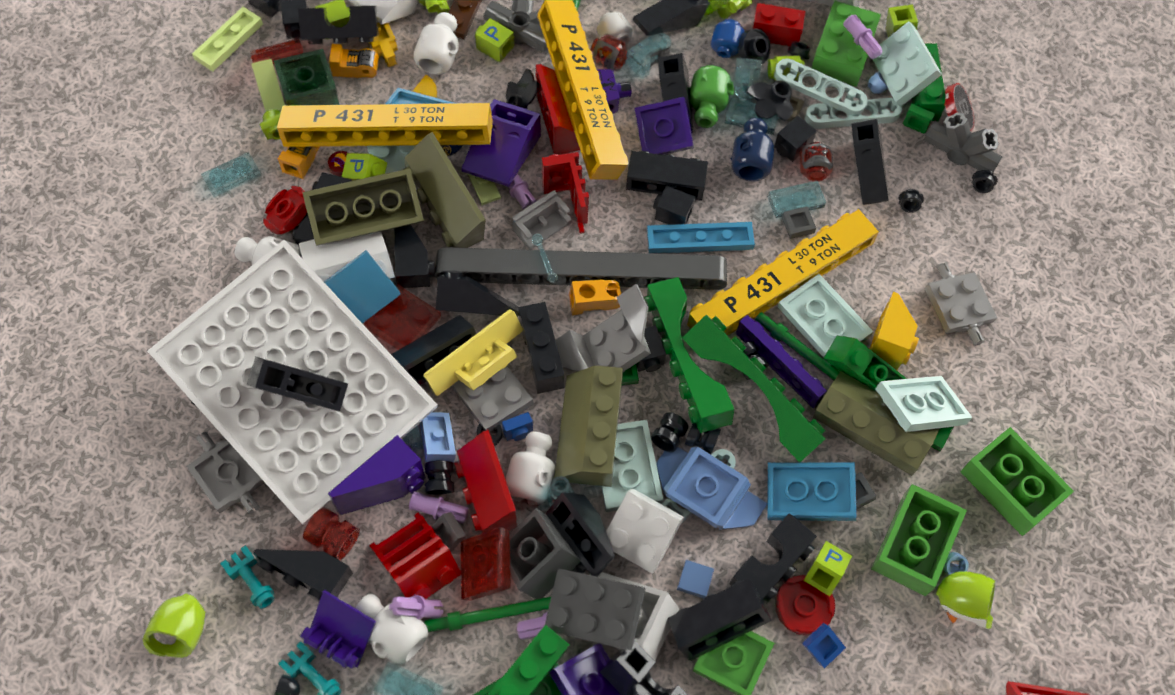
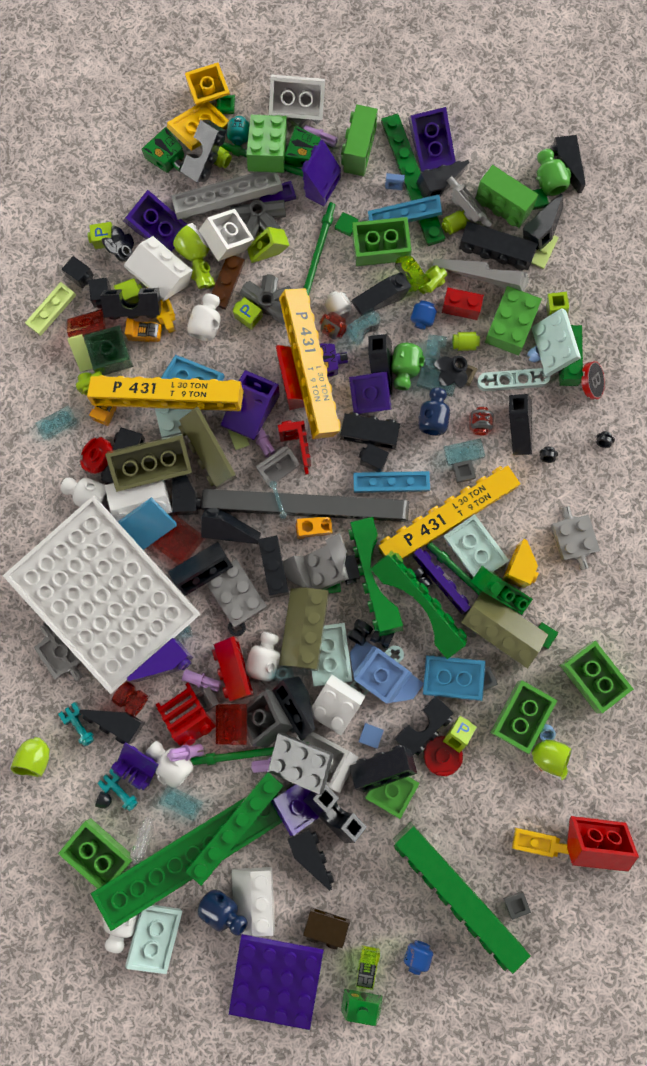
camera: 10 degrees right, 15 degrees up
(297, 384) = (103, 602): black slope -> none
(336, 162) = (135, 415): dark red tile -> none
(363, 166) = (151, 425): lime brick -> none
(426, 86) = (196, 354): yellow tile -> none
(437, 437) = (201, 633): light blue plate -> none
(439, 477) = (202, 660): black wheel -> none
(478, 357) = (229, 577): light yellow bracket -> none
(517, 427) = (256, 626): blue plate -> none
(523, 92) = (266, 361): black plate -> none
(754, 45) = (443, 323): black plate -> none
(794, 138) = (466, 402): black brick -> none
(799, 48) = (477, 325): black plate -> none
(822, 82) = (488, 363): light aqua beam -> none
(824, 645) = (452, 785): blue plate -> none
(863, 36) = (524, 322): lavender axle -> none
(918, 118) = (561, 387): green tile -> none
(923, 403) = (537, 619): light aqua plate -> none
(962, 145) = (593, 411): dark grey piece -> none

